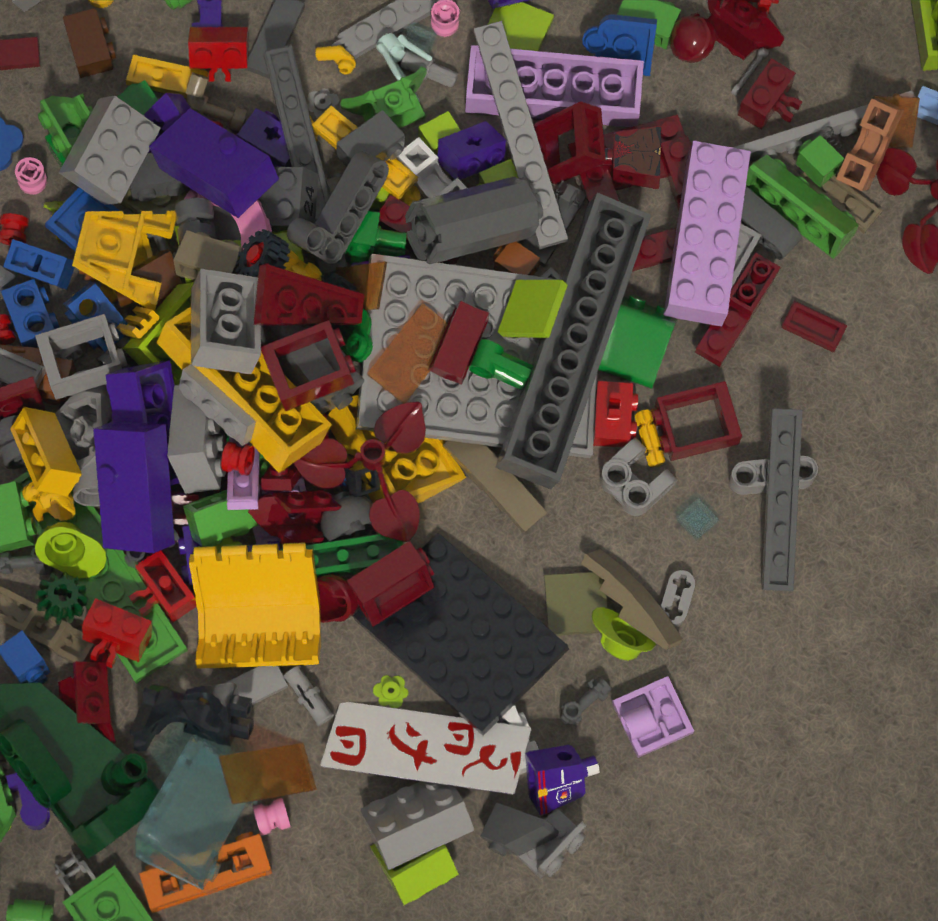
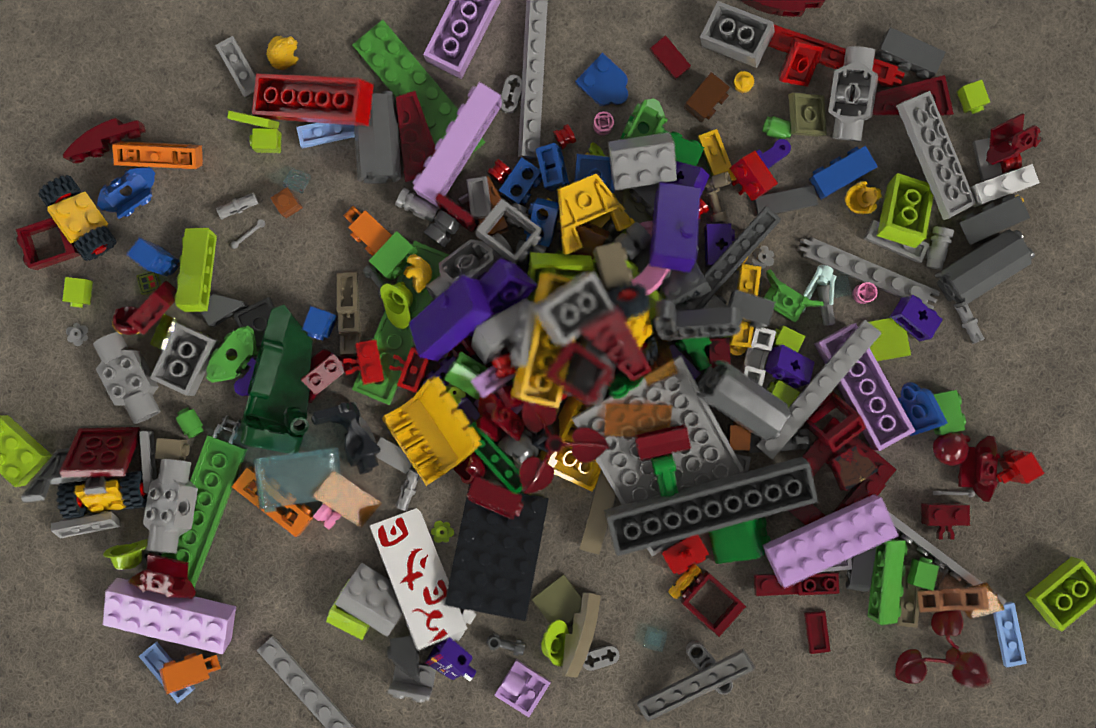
camera: 60 degrees right, 15 degrees up
(45, 451) = (439, 253): yellow brick -> none
(73, 598) = (374, 320): dark green gear -> none
(142, 315) = (552, 245): yellow tile -> none
(339, 54) = (799, 246): yellow arm -> none
(532, 308) = (711, 471): lime tile -> none
(631, 484) = (649, 588): light grey piece -> none

